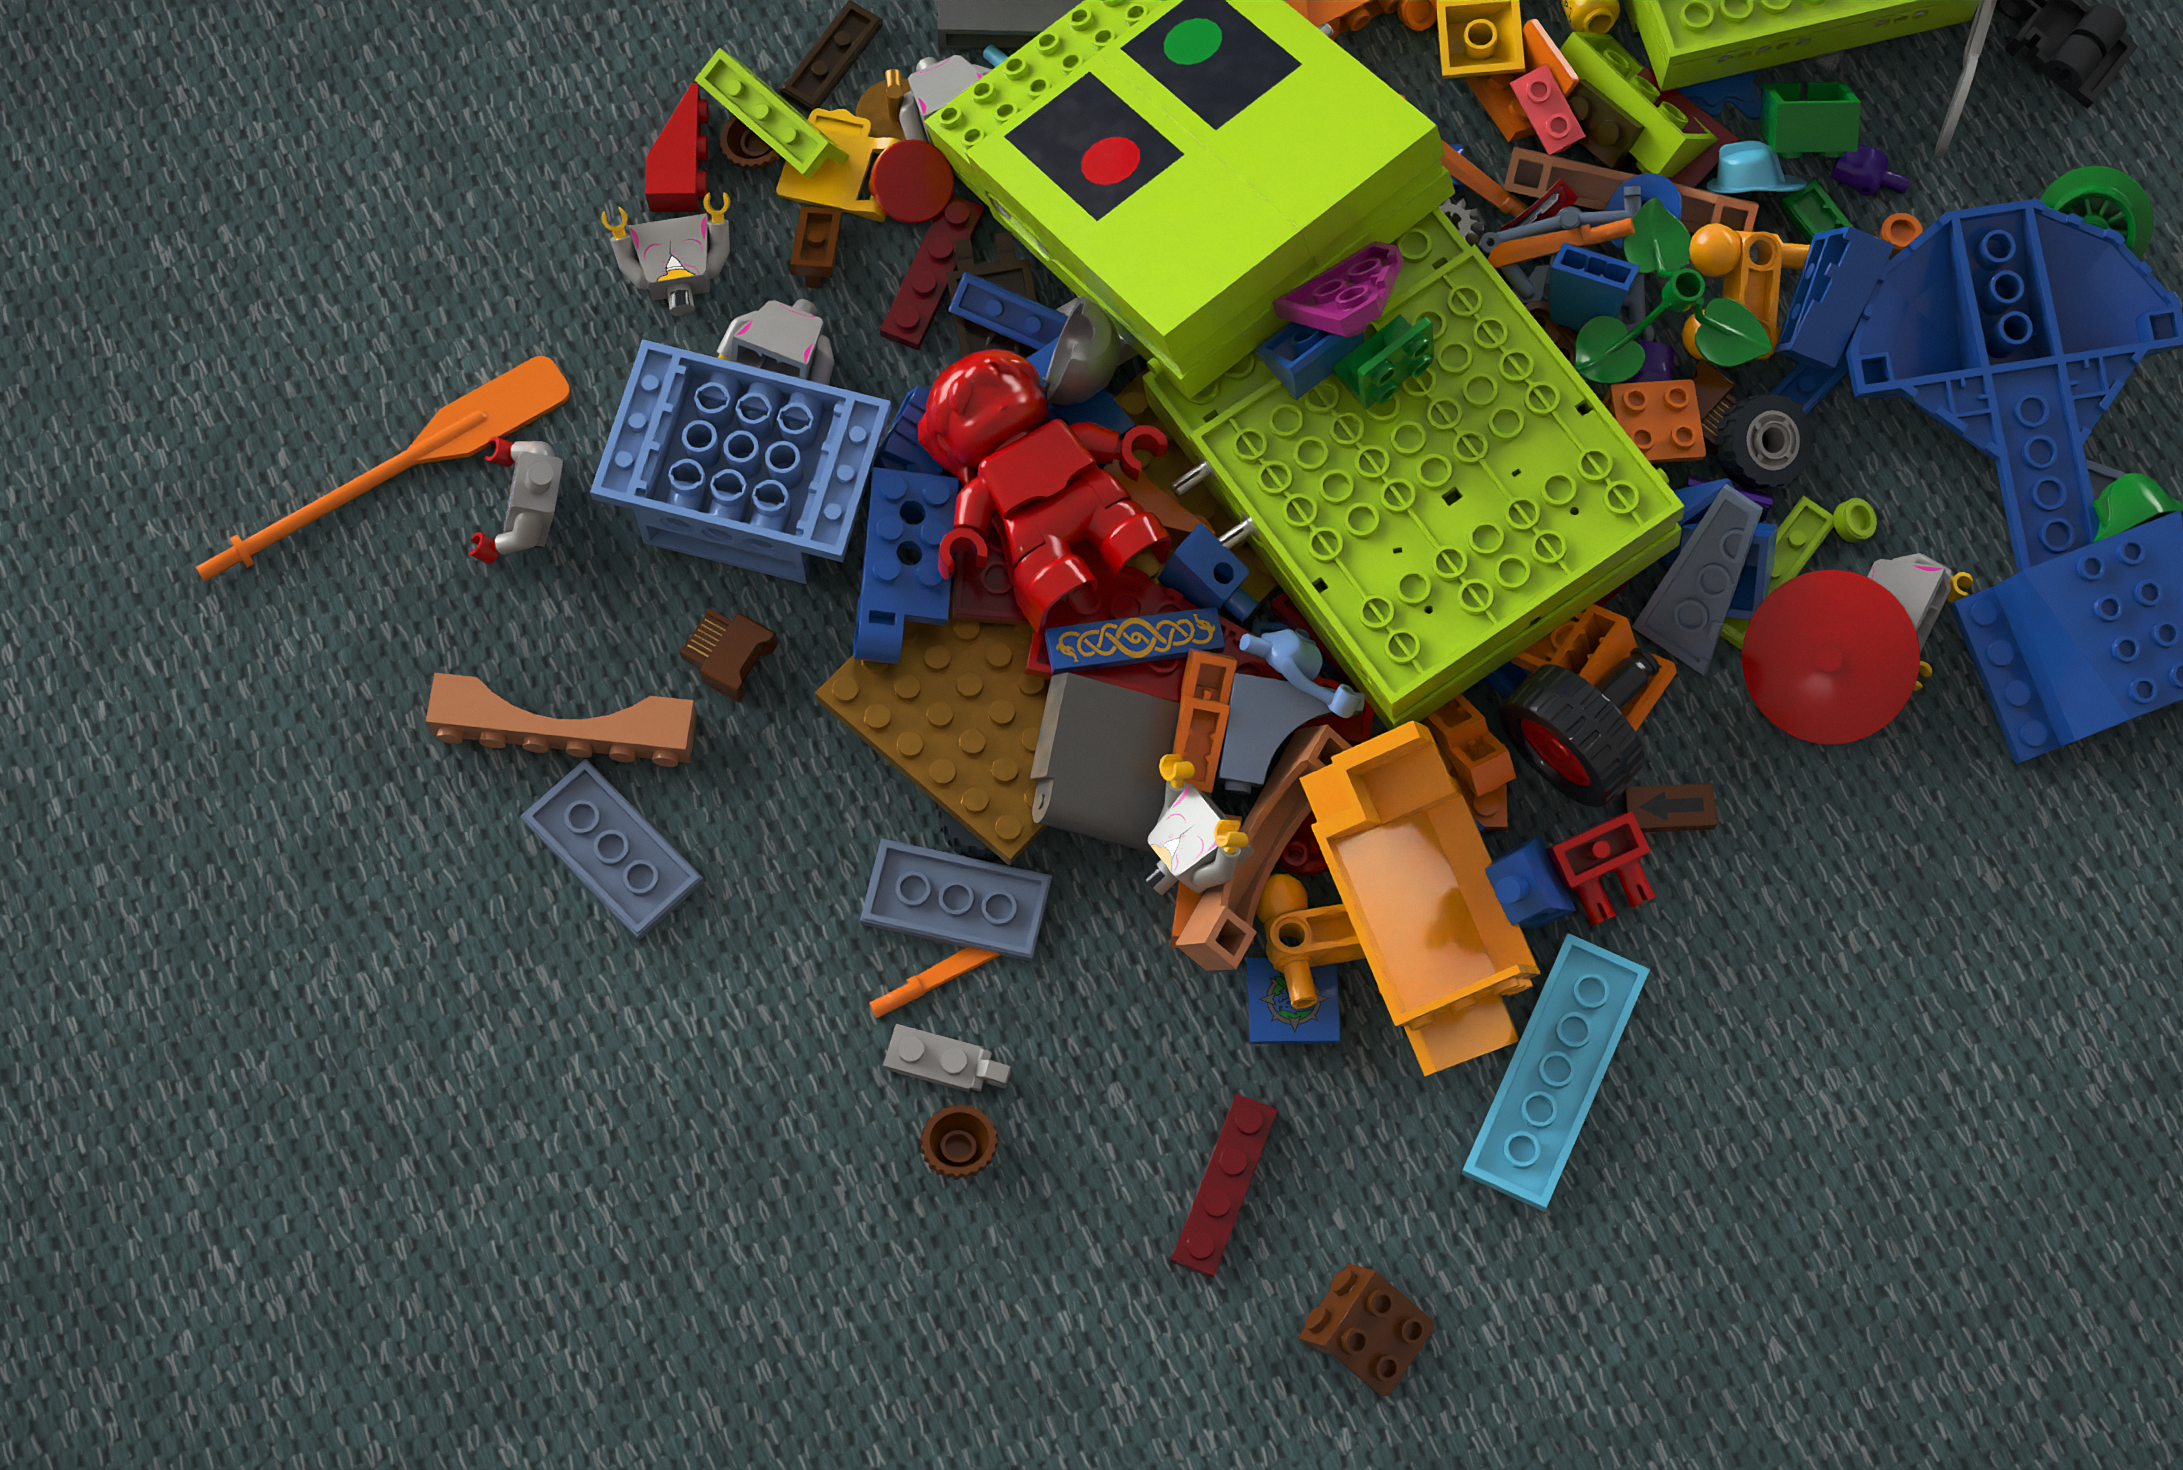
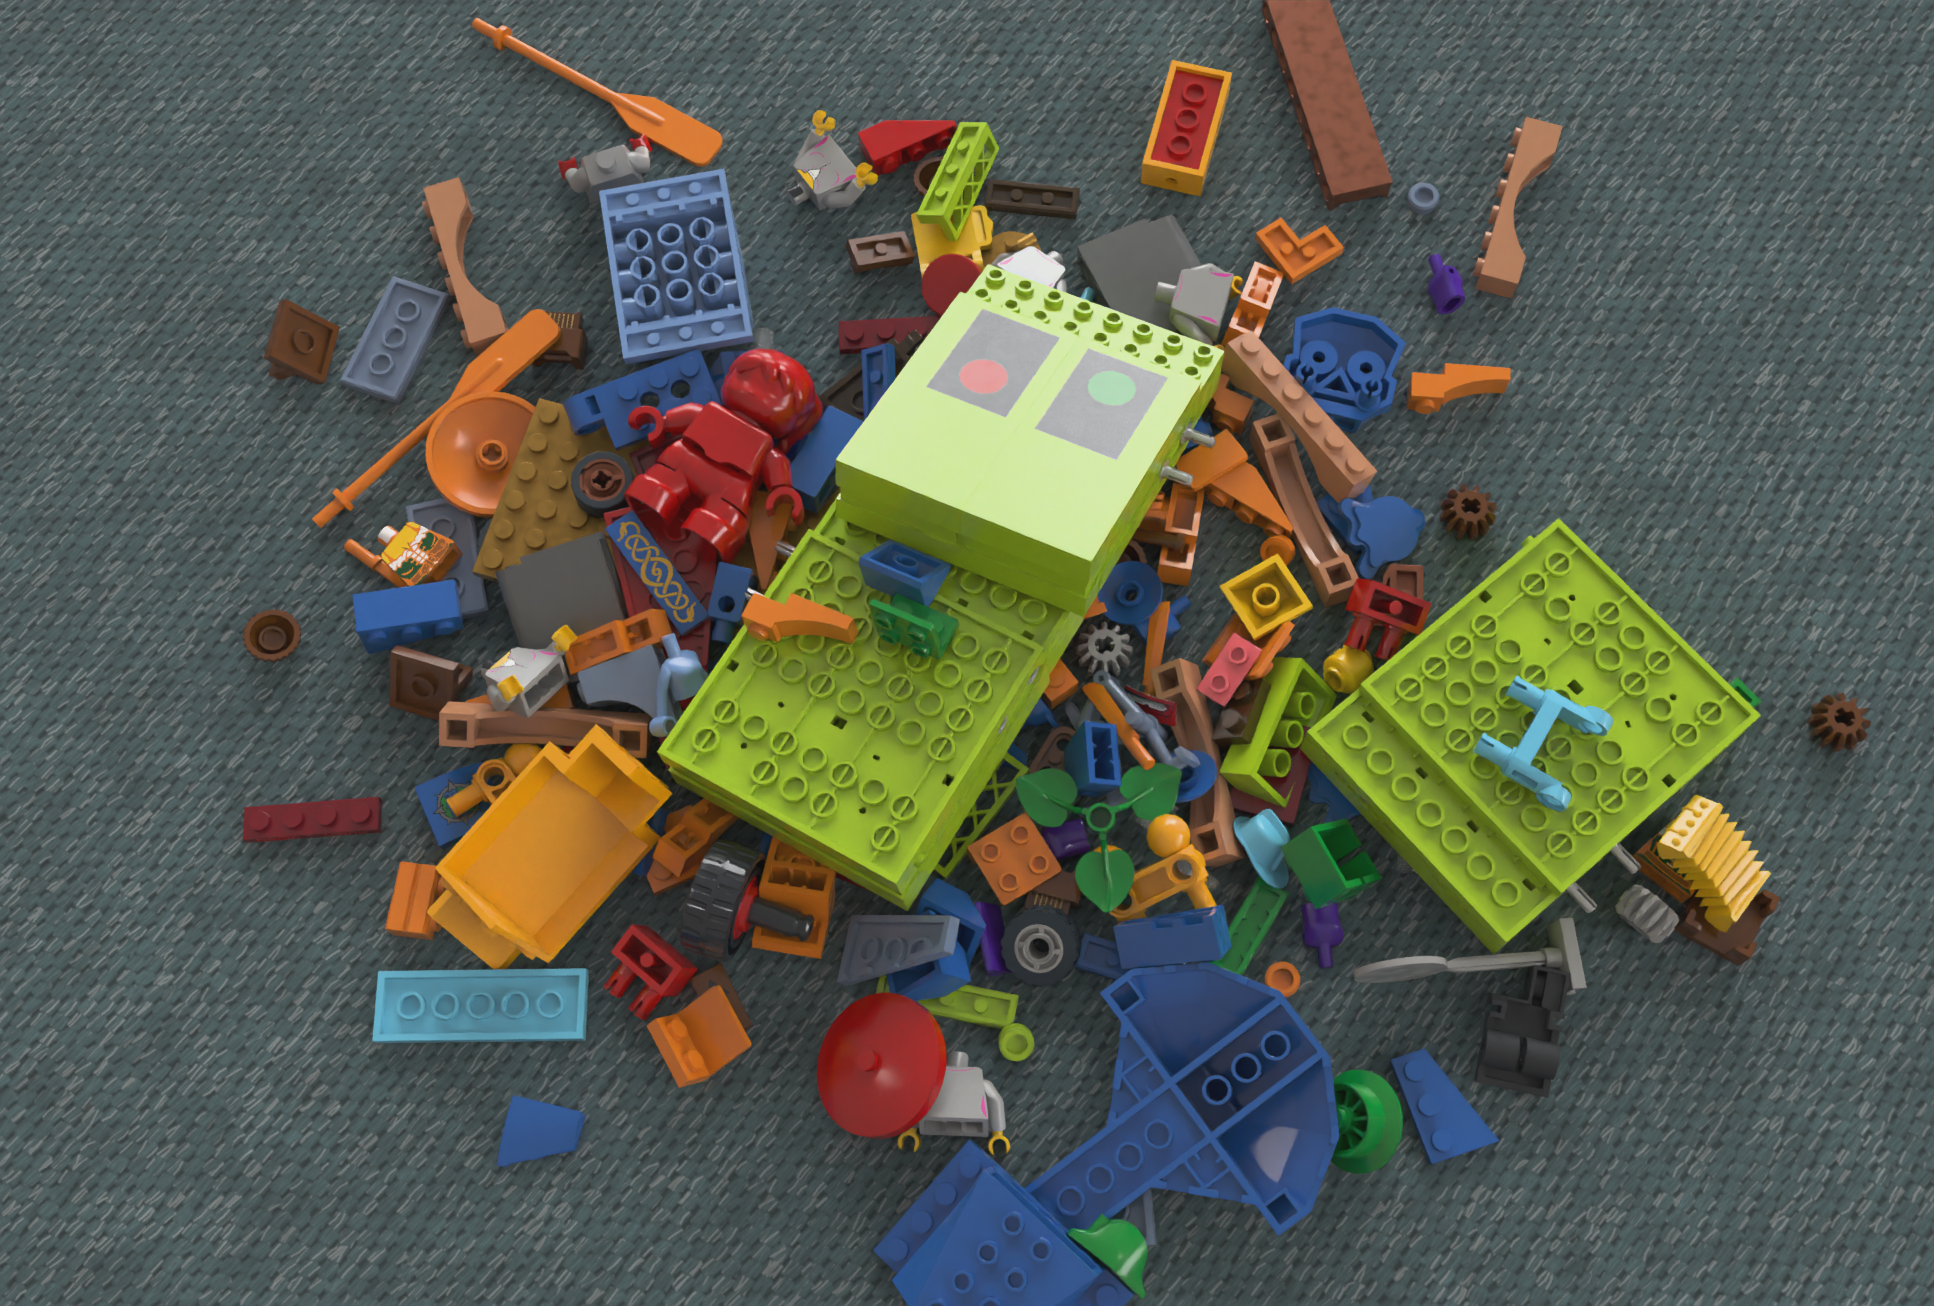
camera: 70 degrees right, 0 degrees up
(562, 963) = (300, 344): none -> reddish brown bracket
(742, 755) = (487, 372): none -> orange piece
(781, 341) = (789, 268): light grey torso -> none
(841, 795) = (475, 449): none -> orange dish
(943, 1060) = (330, 602): light grey hinge -> none
(948, 922) = (418, 553): none -> torso
(995, 674) = (598, 468): none -> wheel
(1025, 959) = (407, 614): none -> blue wedge
(1083, 355) = (827, 440): flat silver cylinder -> none
(1122, 977) = (425, 682): none -> reddish brown bracket
(1295, 511) = (798, 616): none -> orange slope
(1346, 294) = (940, 568): magenta plate -> none
(1367, 1327) = (240, 957): reddish brown bracket -> none
(1394, 1093) = (413, 894): none -> orange brick
(1529, 885) = (601, 919): blue torso -> none
(1708, 833) = (700, 1037): none -> orange bracket
(1734, 1064) = (538, 1130): none -> blue slope
(2120, 144) = (1438, 1109): none -> blue wing

